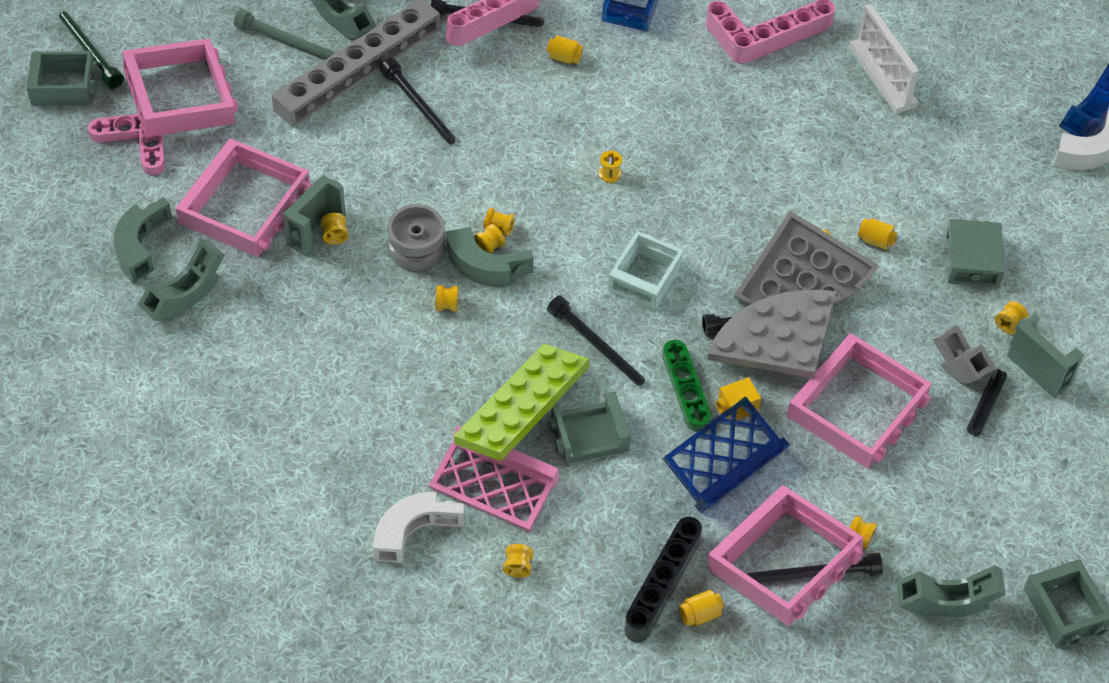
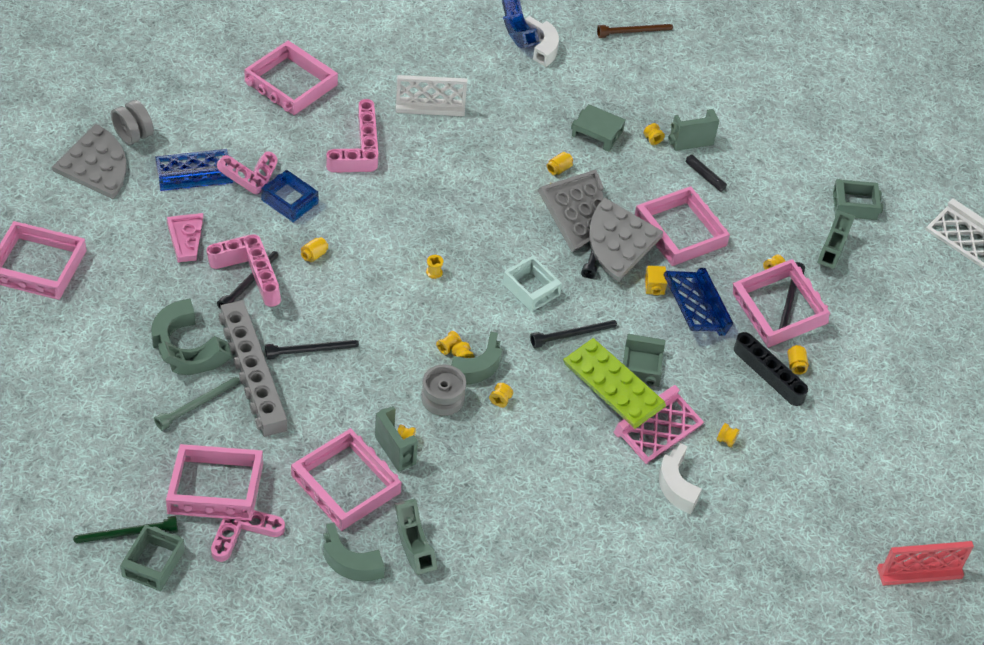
camera: 70 degrees left, 5 degrees down
(686, 385) = (629, 299): green beam -> none
(962, 361) = (678, 167): light grey brick -> none

